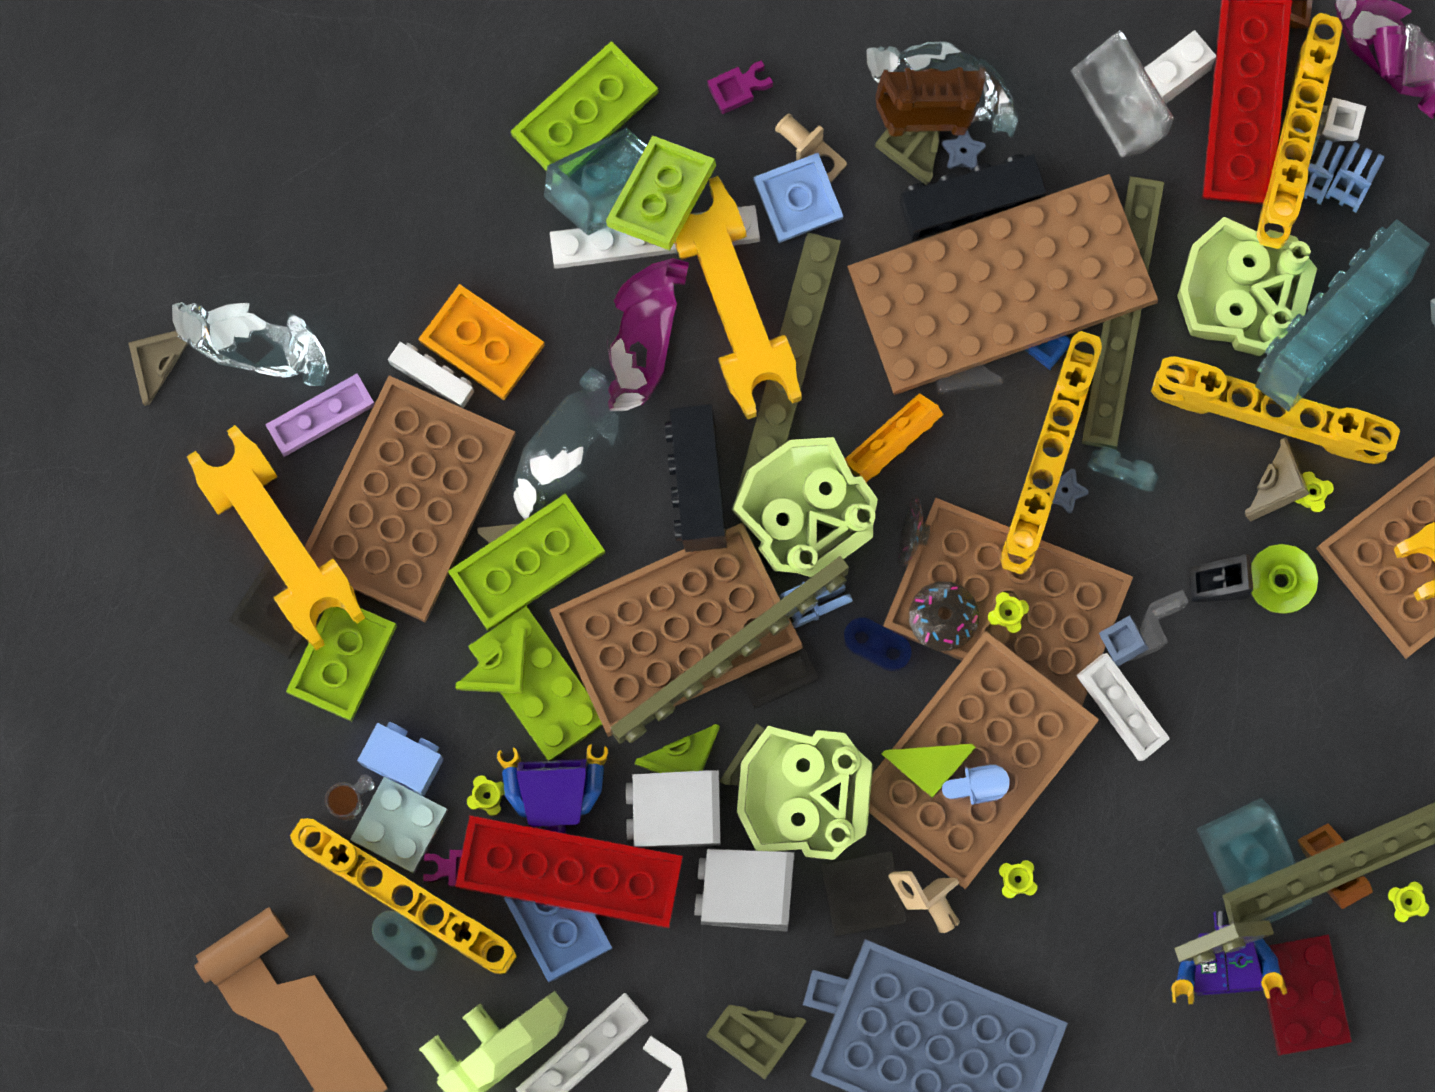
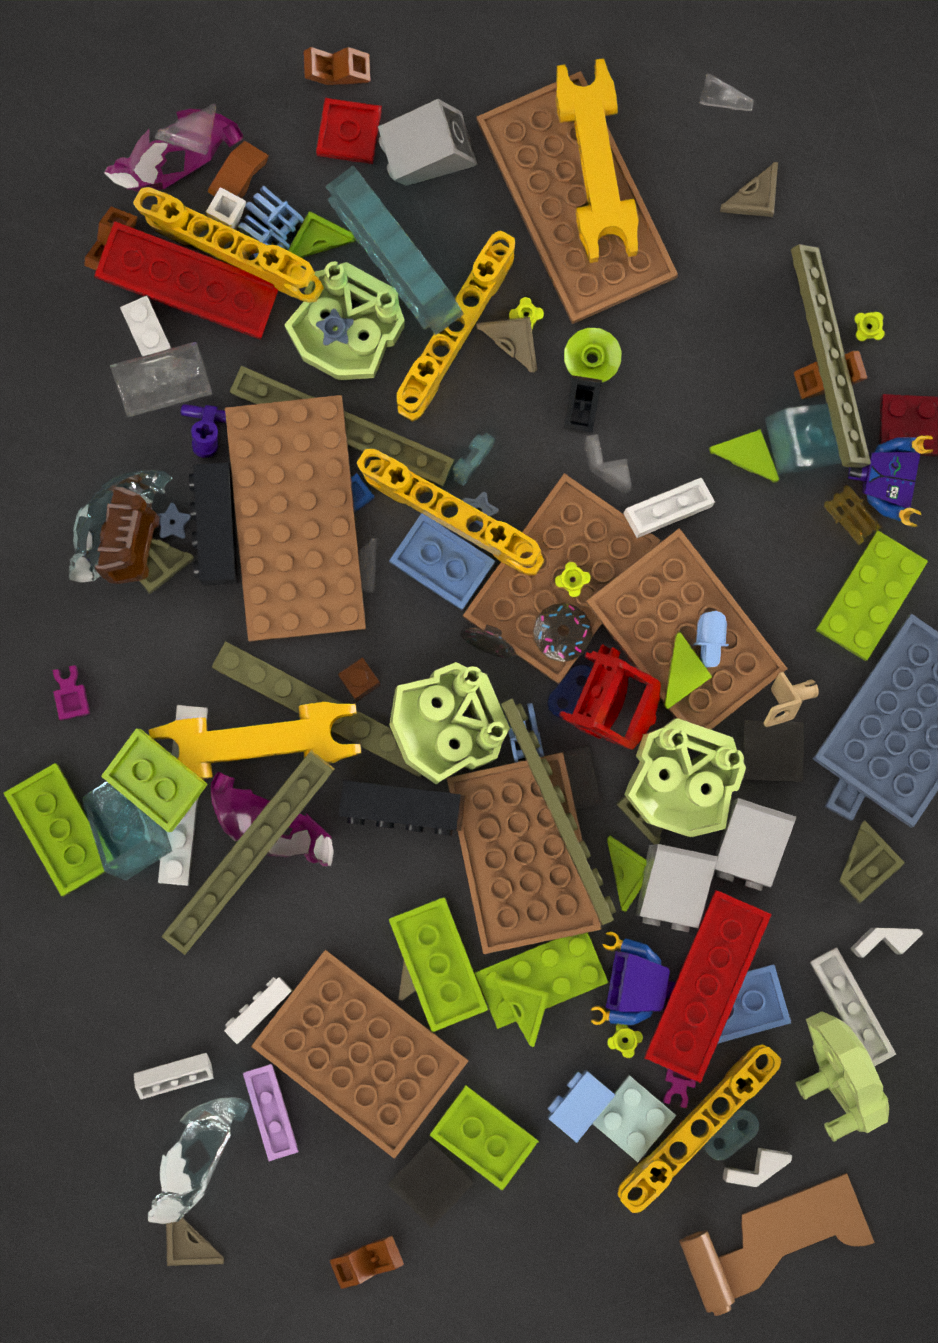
camera: 80 degrees left, 5 degrees up
(175, 559) = (366, 1261): none -> dark orange slope
(309, 587) = (420, 1153): yellow piece -> none
(338, 299) = (173, 1076): none -> white piece
(345, 799) = (608, 1158): piece -> none
(380, 989) = (766, 1165): none -> white slope
(481, 342) = (239, 961): light orange plate -> none
(559, 447) = (344, 910): clear light blue animal -> none
(606, 318) = (248, 852): none -> olive plate
(798, 197) = (180, 667): light blue plate -> none
(809, 143) = (138, 647): tan bracket -> none
(832, 398) = (359, 679): none -> reddish brown brick
(877, 680) = (605, 696): none -> red animal
(893, 437) = (403, 638): light orange plate -> none
(993, 461) = (442, 561): none -> medium blue plate
(1013, 888) = (792, 619): neon yellow plate -> none
(1074, 159) = (205, 431): none -> dark purple piece
(1079, 974) = (871, 595): none -> lime plate
(1123, 640) = (618, 493): sand blue tile -> none
(1172, 924) = (856, 519): none -> clear yellow arm
(1214, 789) = (748, 453): none -> lime tile
(1225, 939) = (881, 470): olive wing -> none
(1238, 265) = (327, 327): none -> sand blue plate
(1339, 229) = (318, 236): none -> lime tile
(1390, 50) = (174, 156): magenta cone -> none
(1394, 124) = (239, 169): none -> dark orange slope

